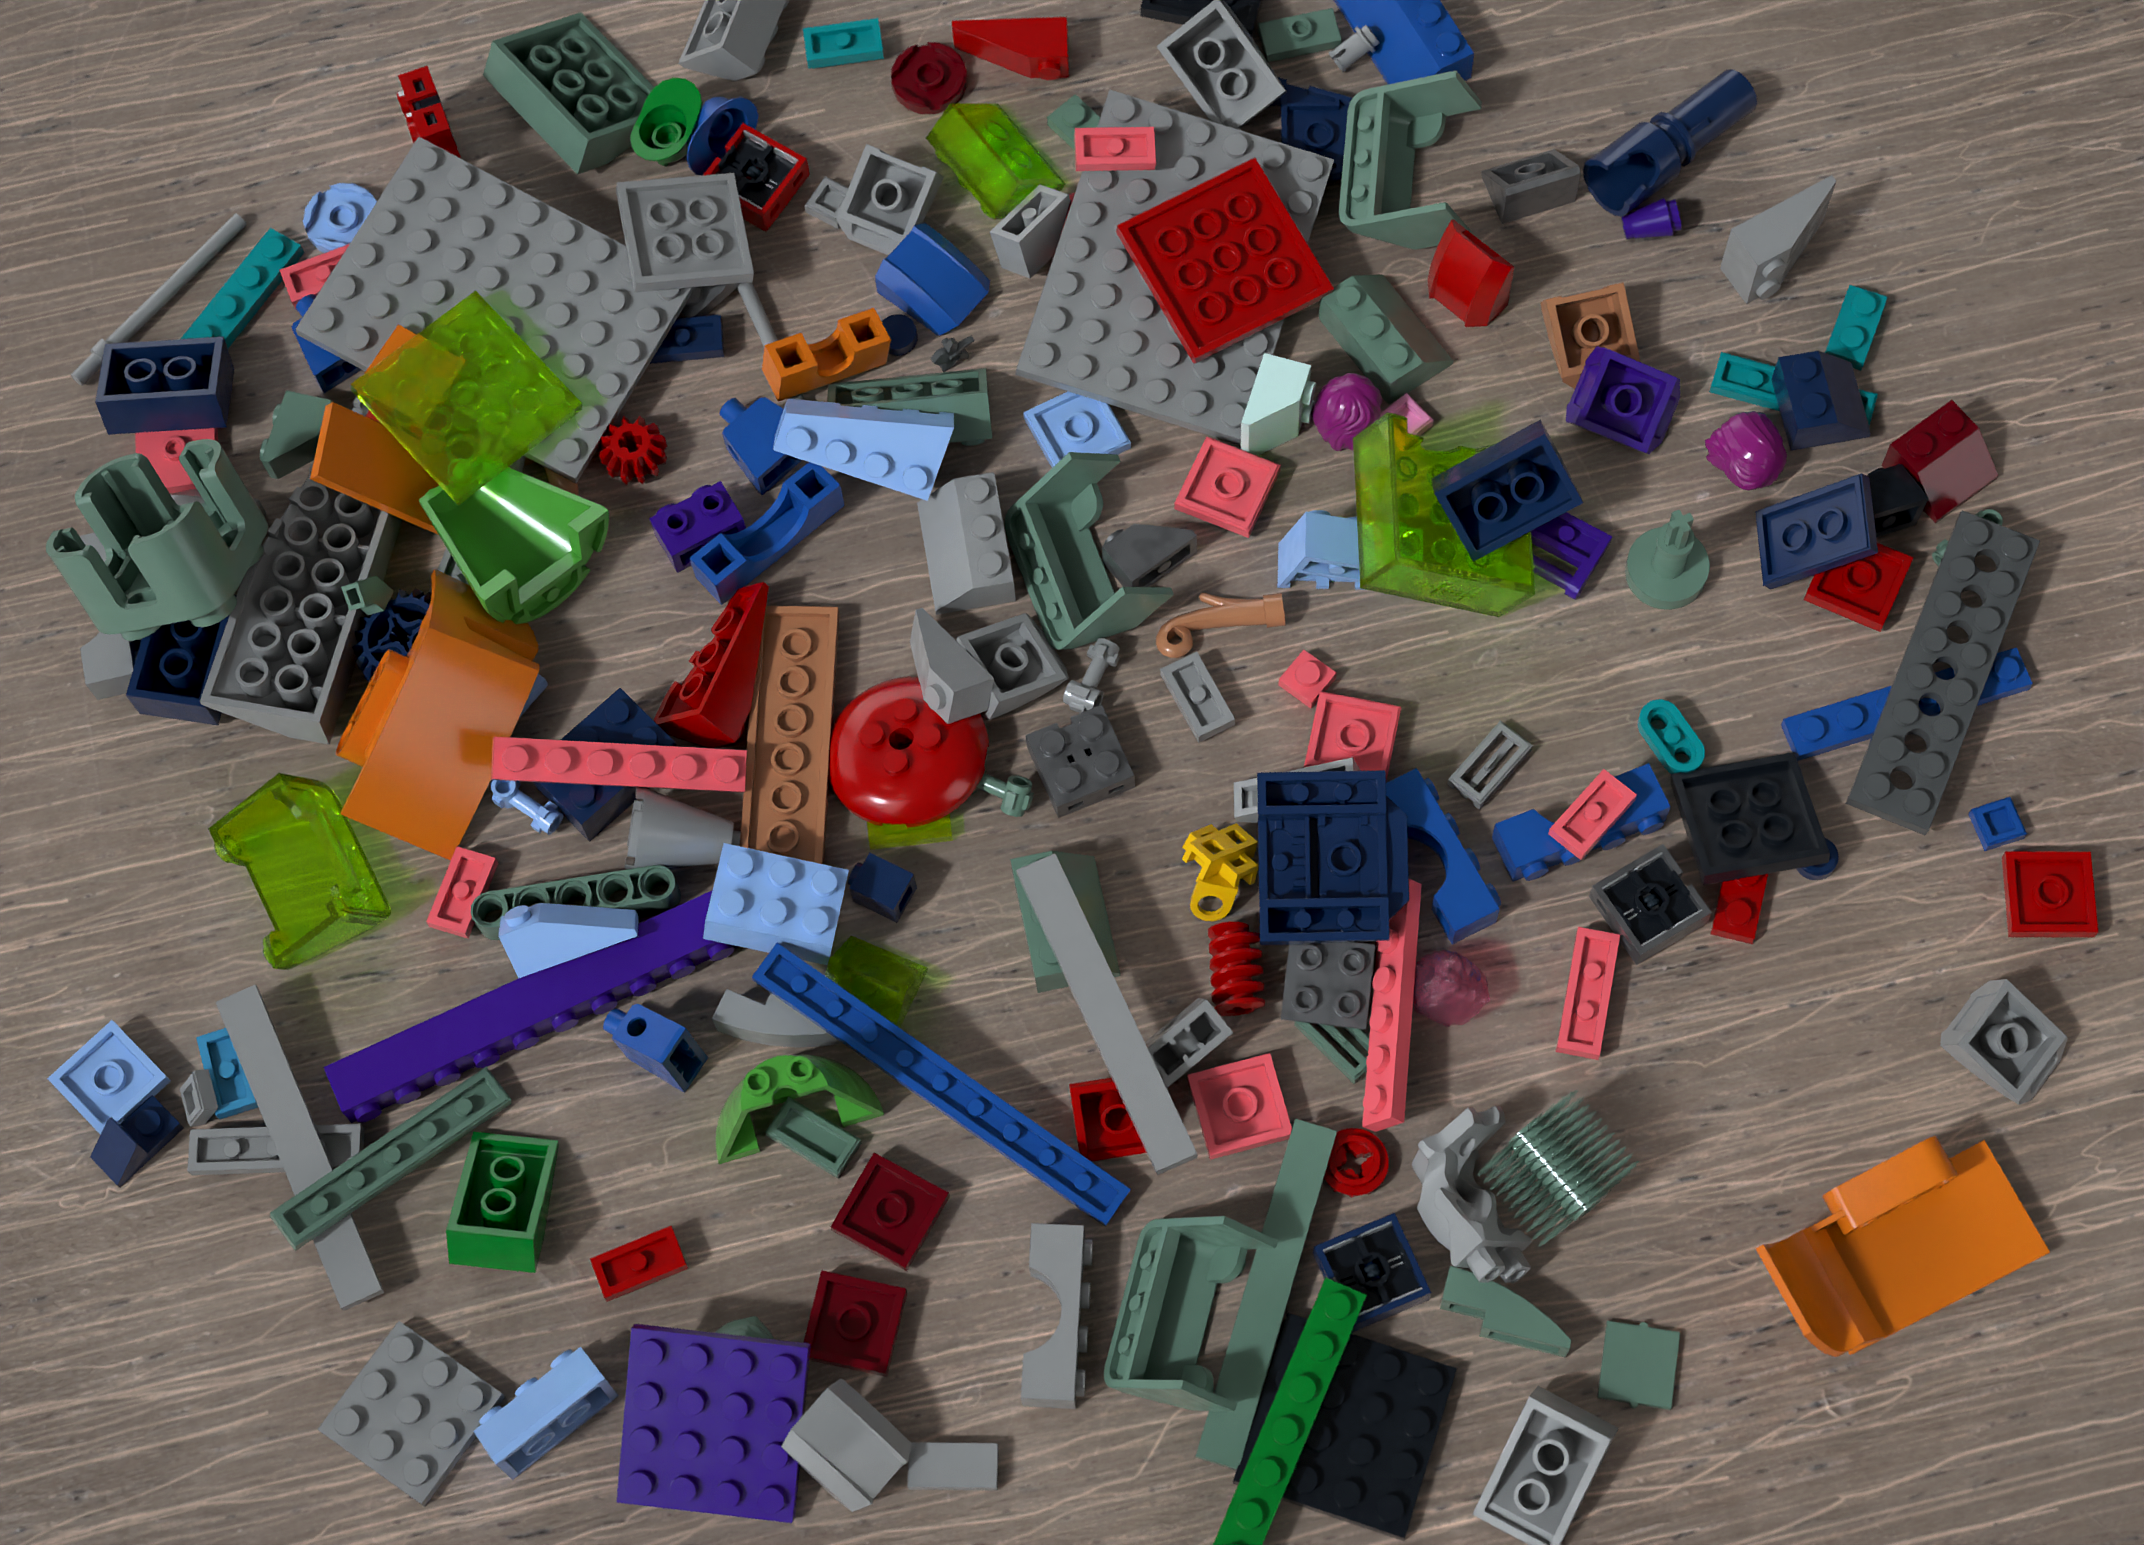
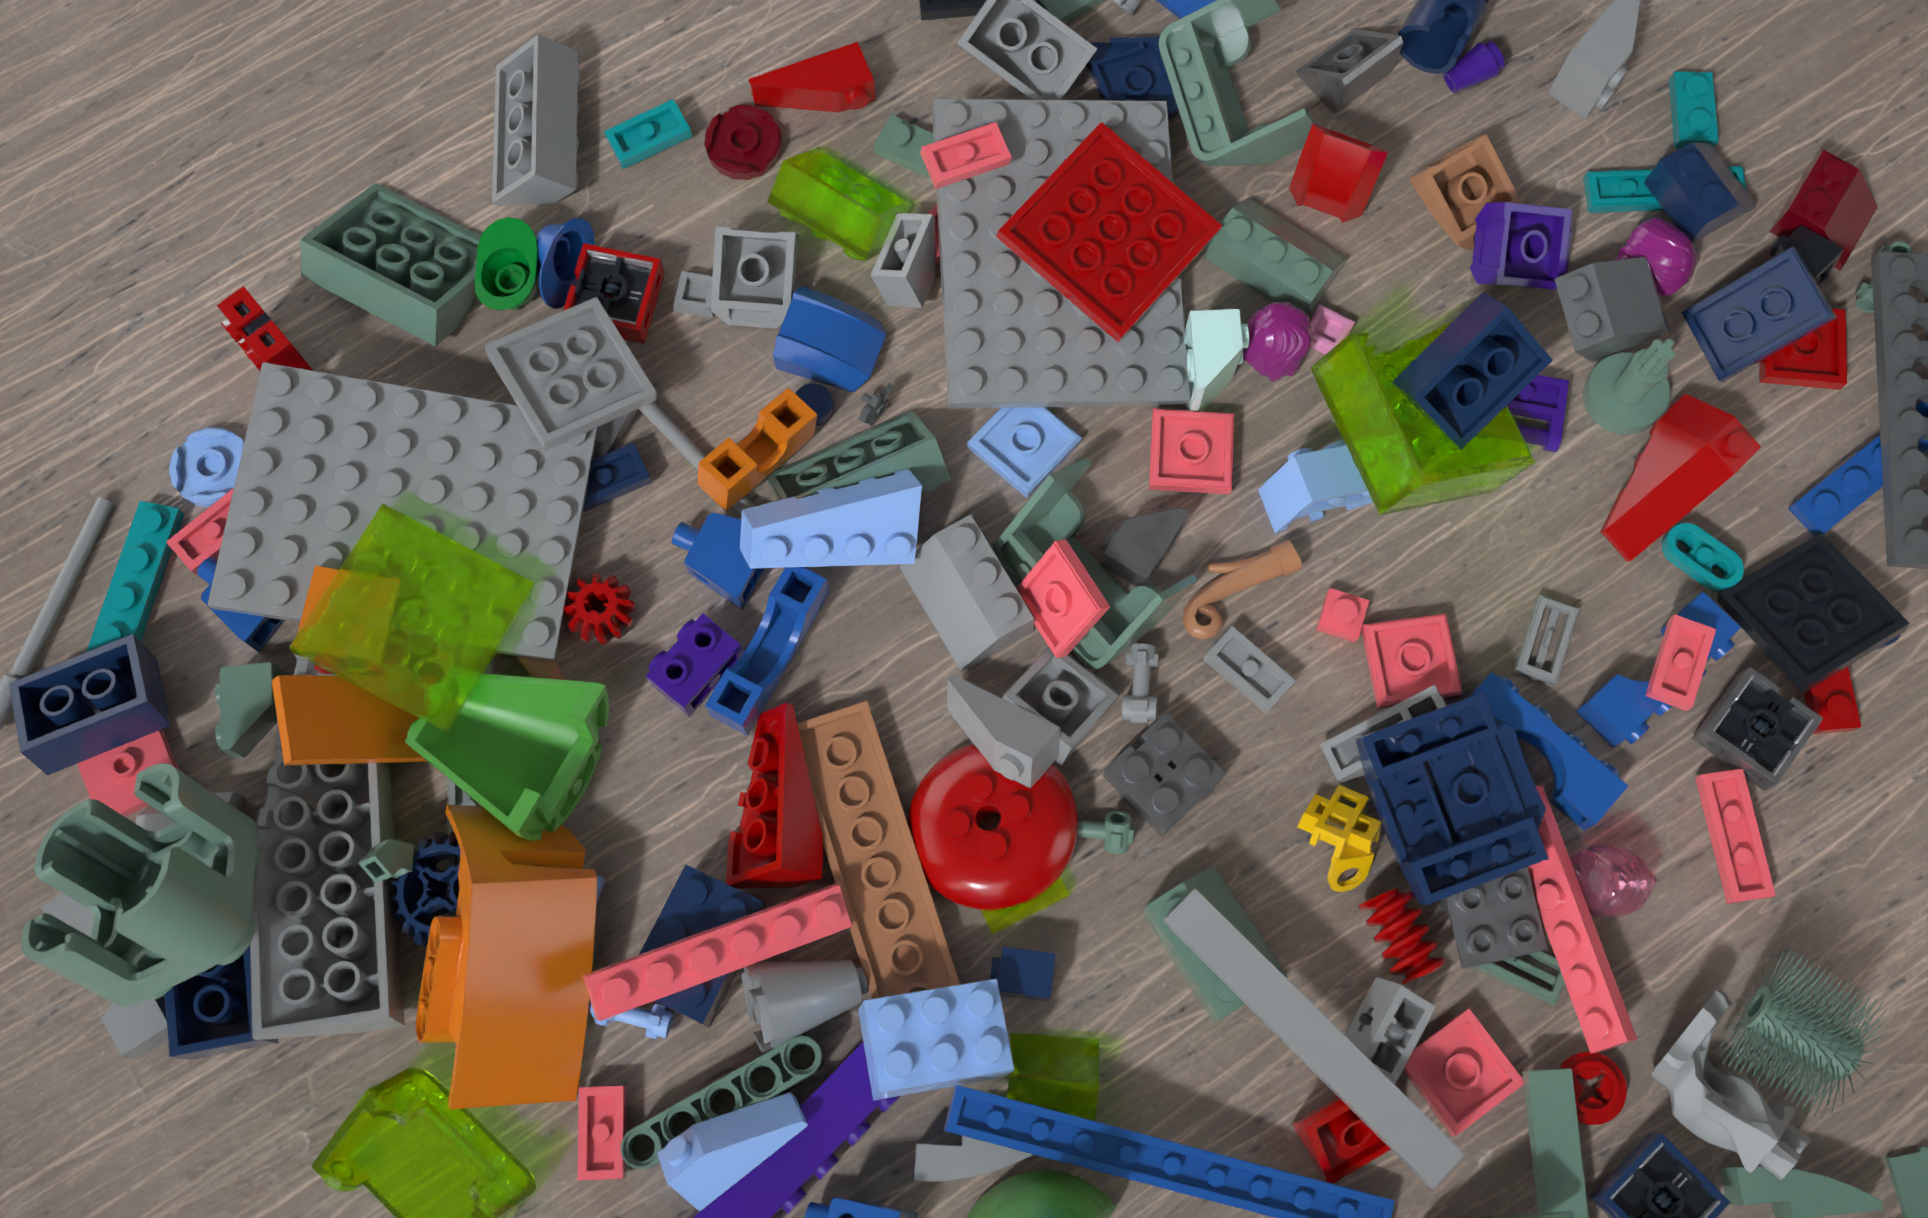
camera: 25 degrees left, 5 degrees up
(1043, 570) = (1062, 598): none -> coral plate
(1677, 474) = (1611, 306): none -> dark grey slope
(1681, 648) = (1684, 462): none -> red wedge

